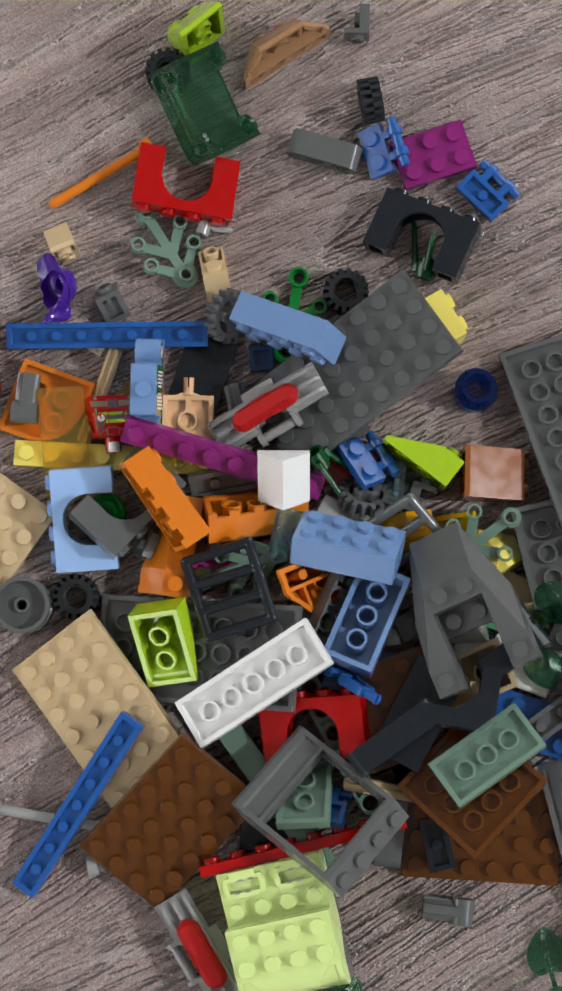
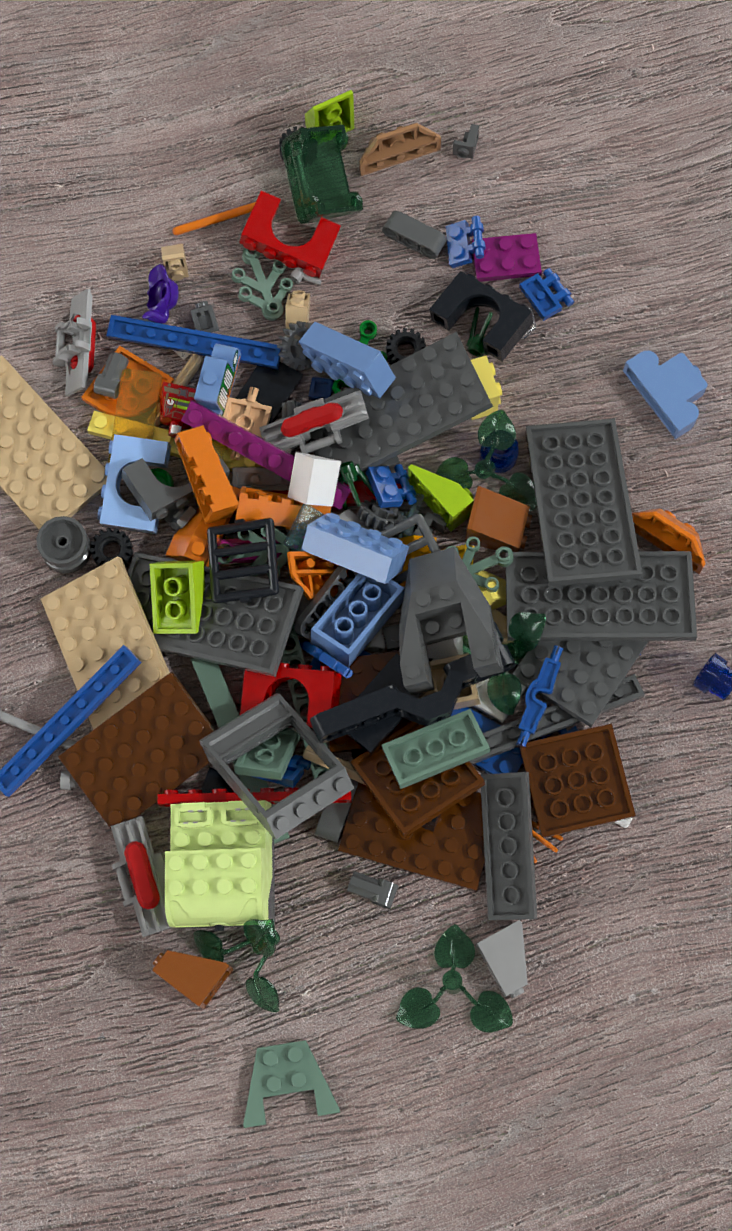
camera: 10 degrees right, 10 degrees down
(254, 683) = (244, 642): white plate -> none
(370, 100) = (462, 200): black tyre -> none
(436, 846) = (374, 826): black plate -> none
(471, 376) = (499, 433): none -> clear green plant

